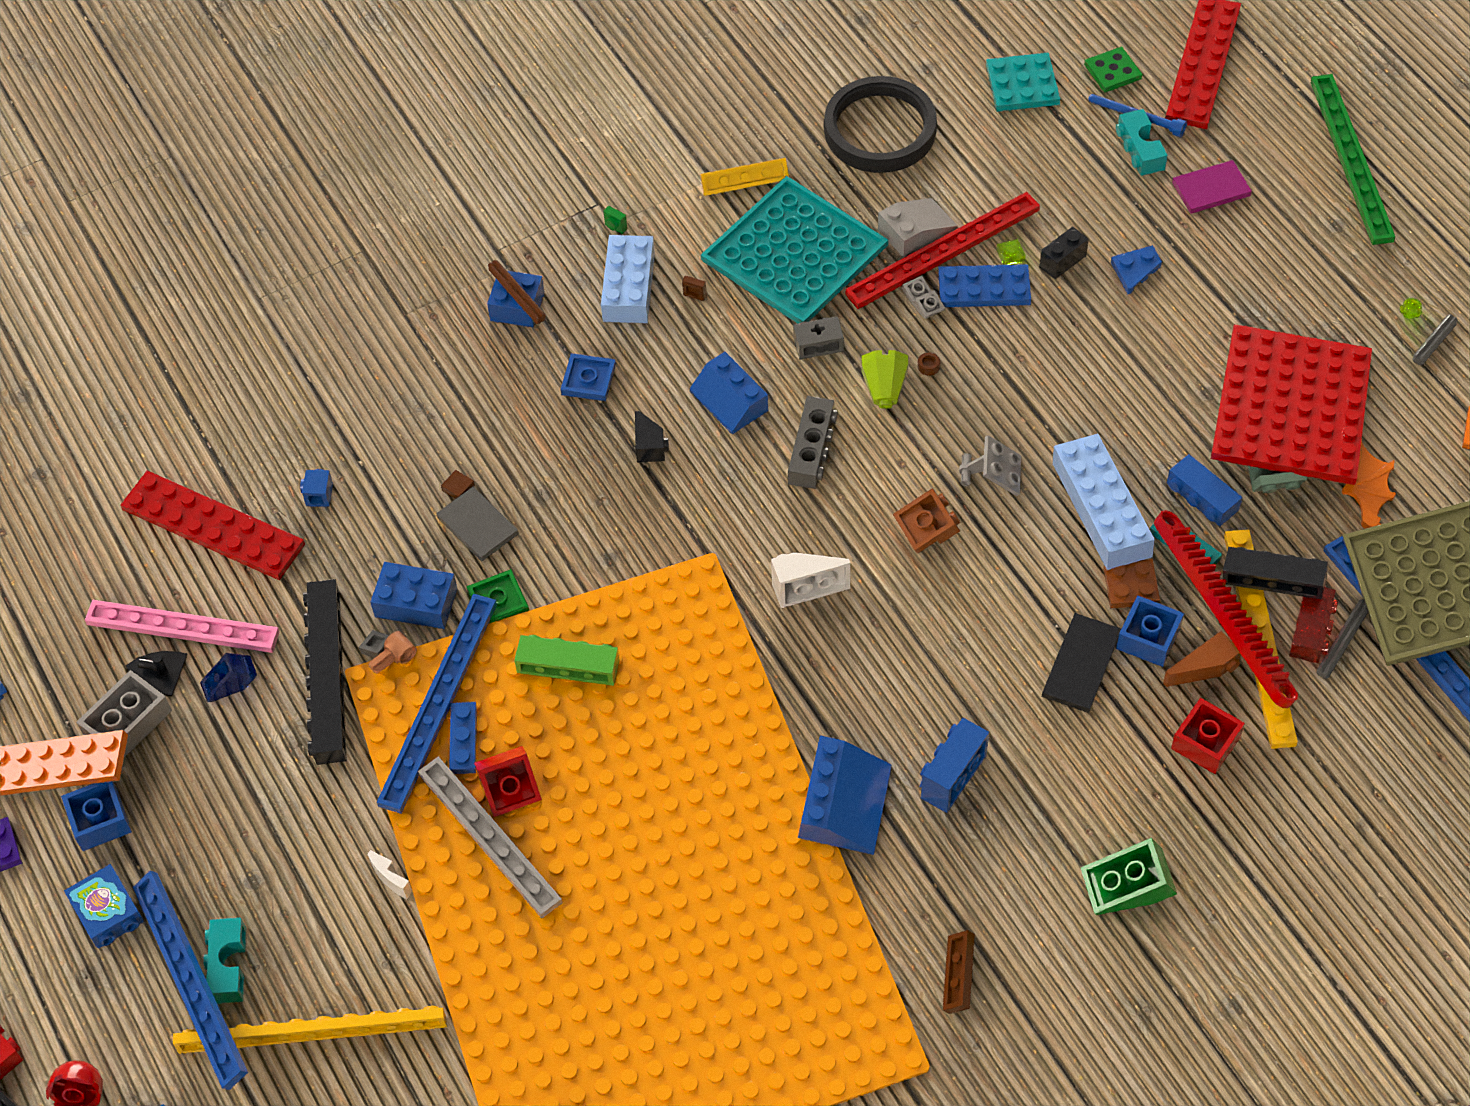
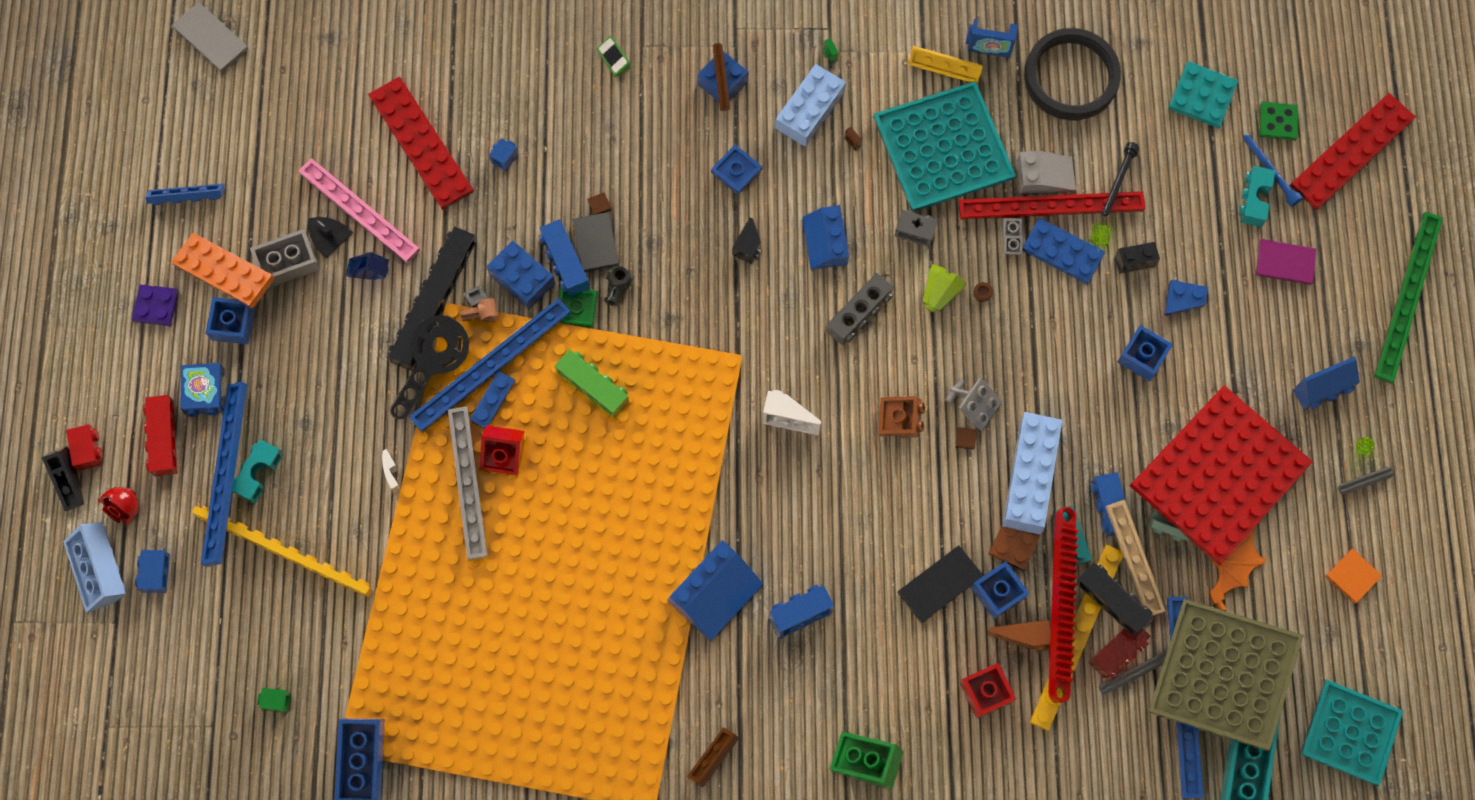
camera: 25 degrees right, 15 degrees up
(82, 982) = (160, 435): none -> red brick
(365, 730) = (430, 361): none -> black beam
(381, 336) = (613, 56): none -> slope
(453, 553) = (564, 257): none -> blue brick
(531, 551) = (617, 286): none -> pearl dark grey connector
(777, 130) = (990, 41): none -> blue panel
(988, 164) = (1130, 151): none -> black piece
(1008, 508) = (965, 438): none -> reddish brown tile
(1135, 332) = (1145, 353): none -> blue brick
(1258, 519) = (1135, 557): none -> tan tile
(1334, 269) = (1328, 384): none -> blue slope

